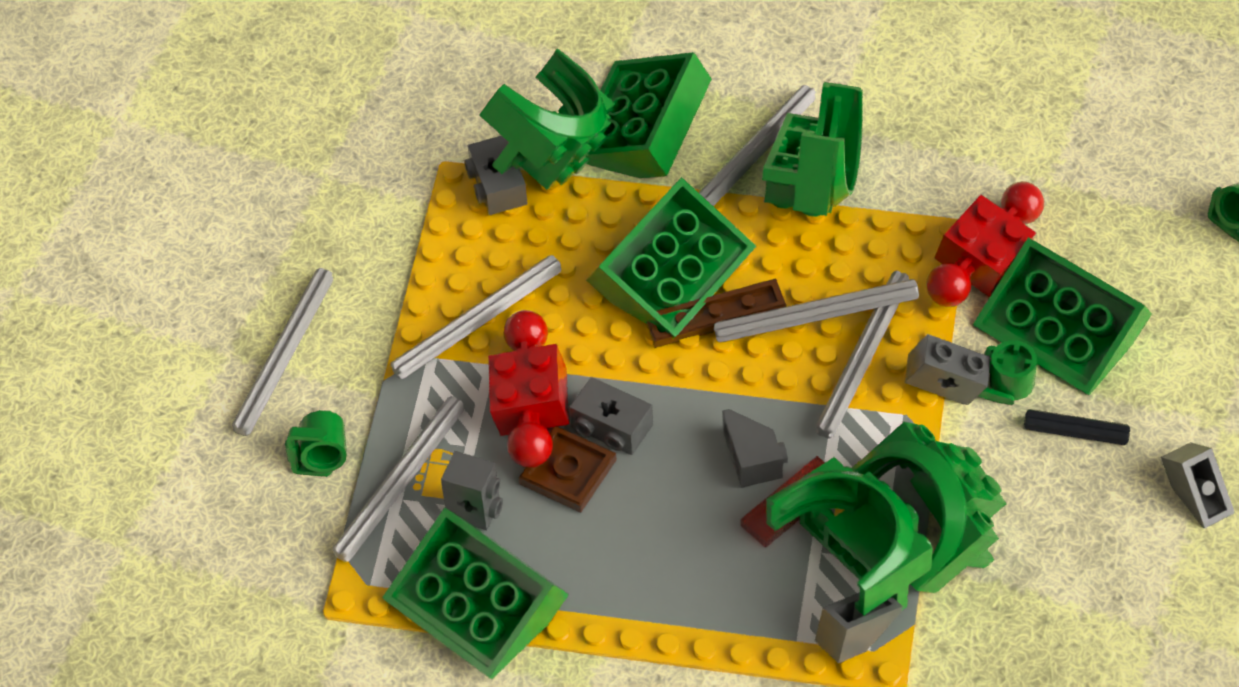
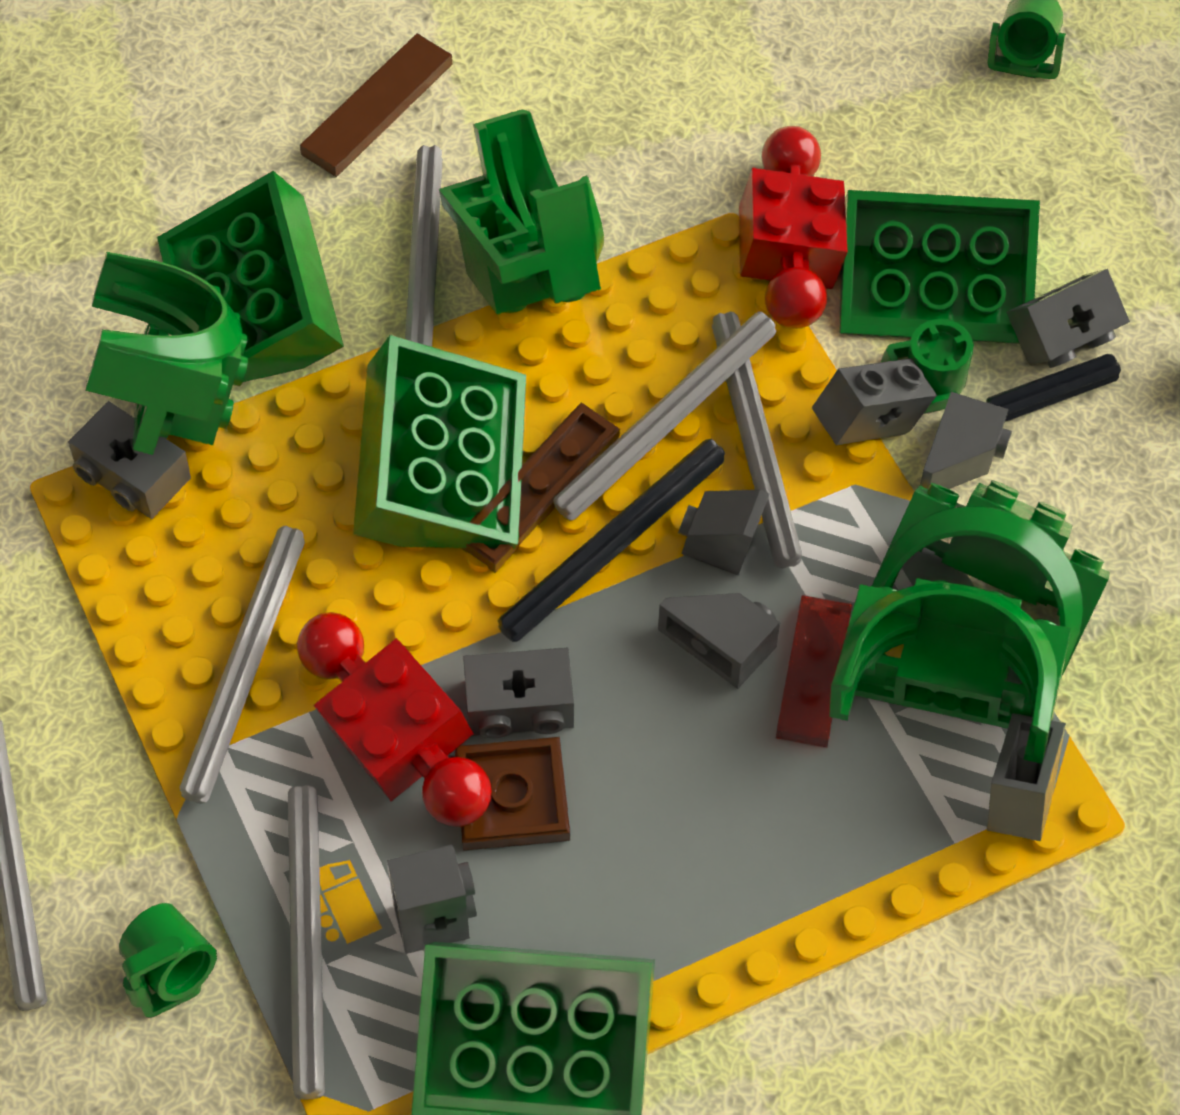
camera: 40 degrees left, 5 degrees up
(732, 363) = (610, 540): none -> black axle
(796, 392) = (723, 527): none -> dark grey slope
(801, 47) = (376, 105): none -> reddish brown tile
(987, 426) = (966, 442): none -> dark grey slope
(1135, 380) = (1090, 304): none -> dark grey brick

